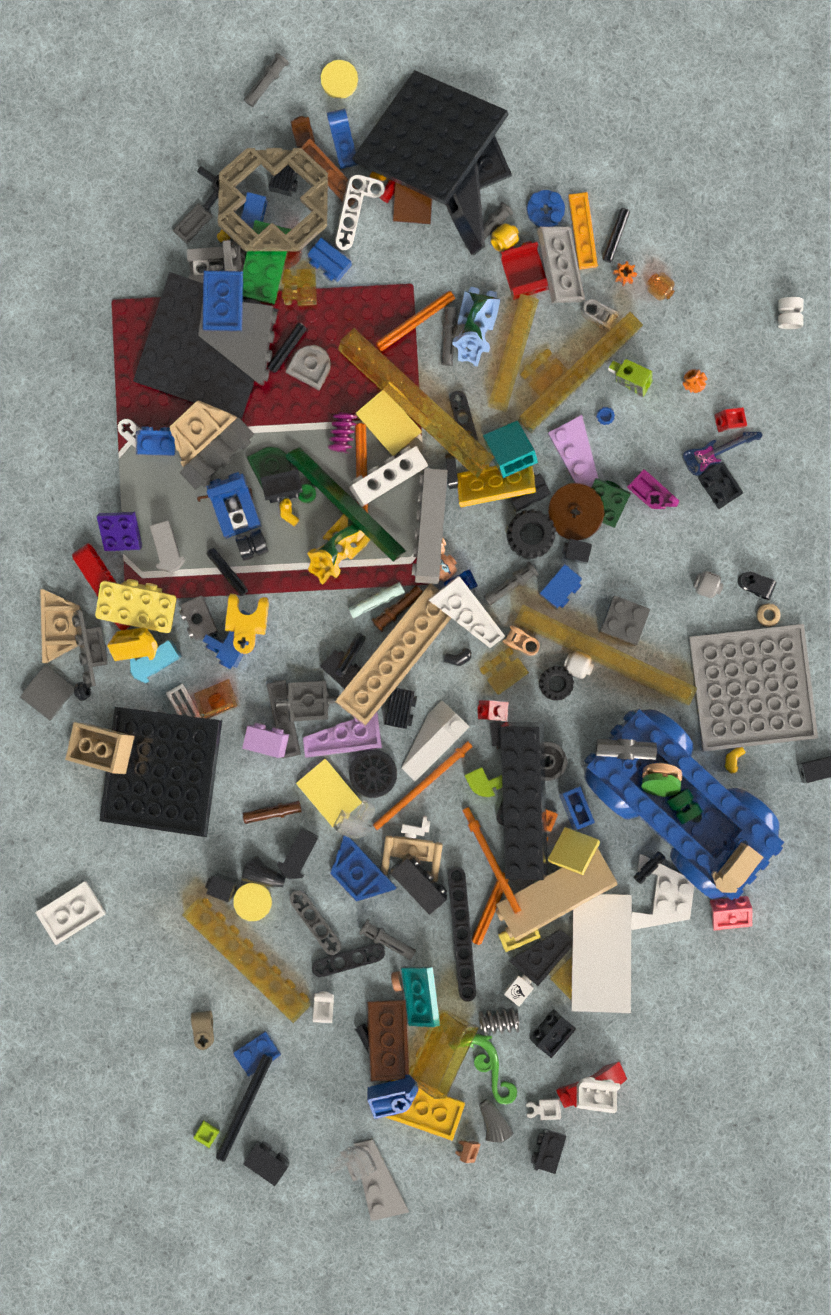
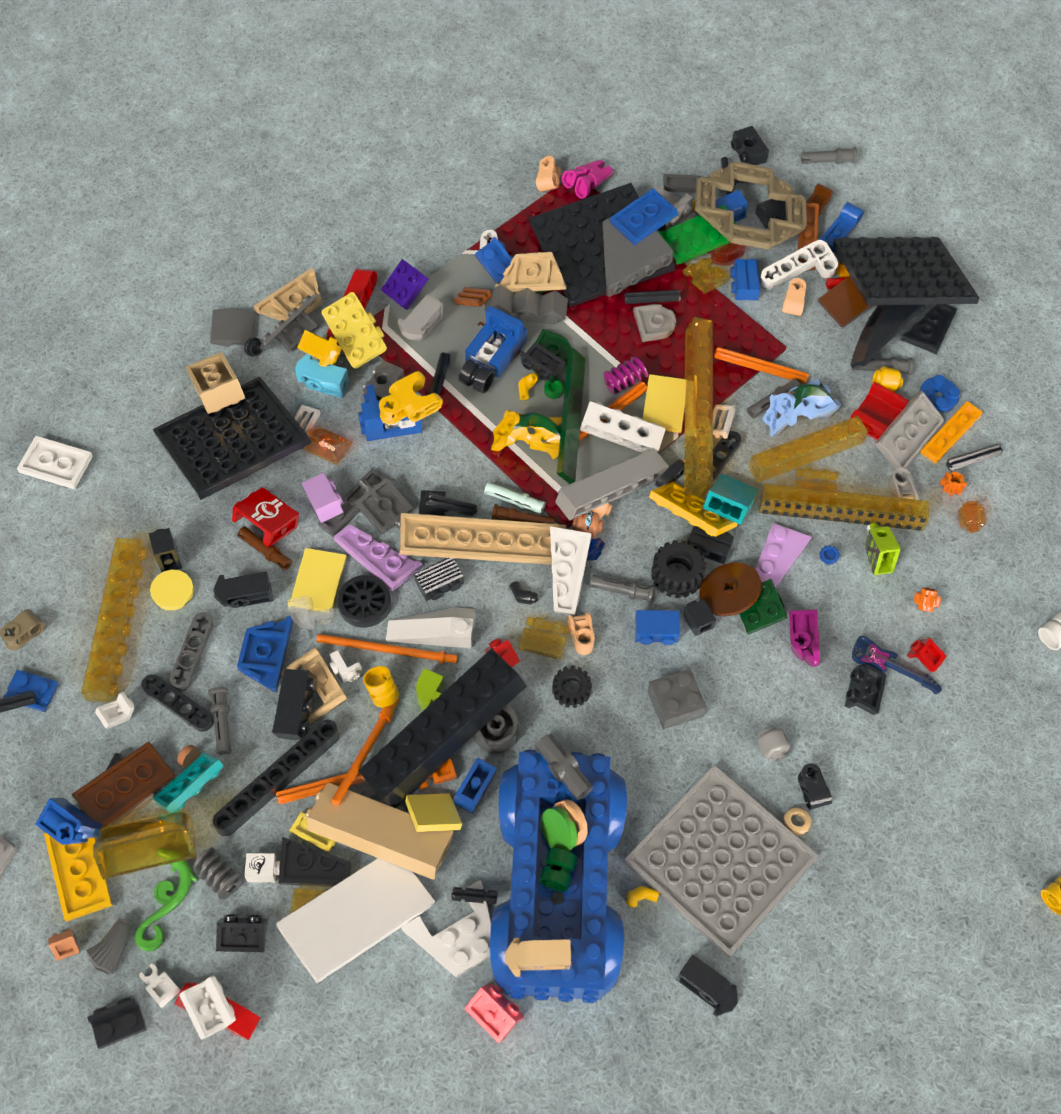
camera: 50 degrees right, 25 degrees down
(101, 327) = (548, 175): none -> light nougat piece
(129, 294) = (586, 177): none -> dark pink piece
(164, 491) = (472, 297): none -> dark orange tile
(196, 129) = (749, 146): none -> black brick
(248, 793) = (268, 514): none -> red panel
(258, 873) = (201, 575): black piece -> none
(339, 79) = (880, 199): light yellow tile -> none
(379, 240) = (794, 297): none -> light nougat piece
(428, 381) = (717, 432): none -> white tile
(454, 815) = (381, 686): none -> yellow wheel
(578, 665) = (604, 691): white head -> none
(605, 655) = (633, 709): clear yellow brick -> none

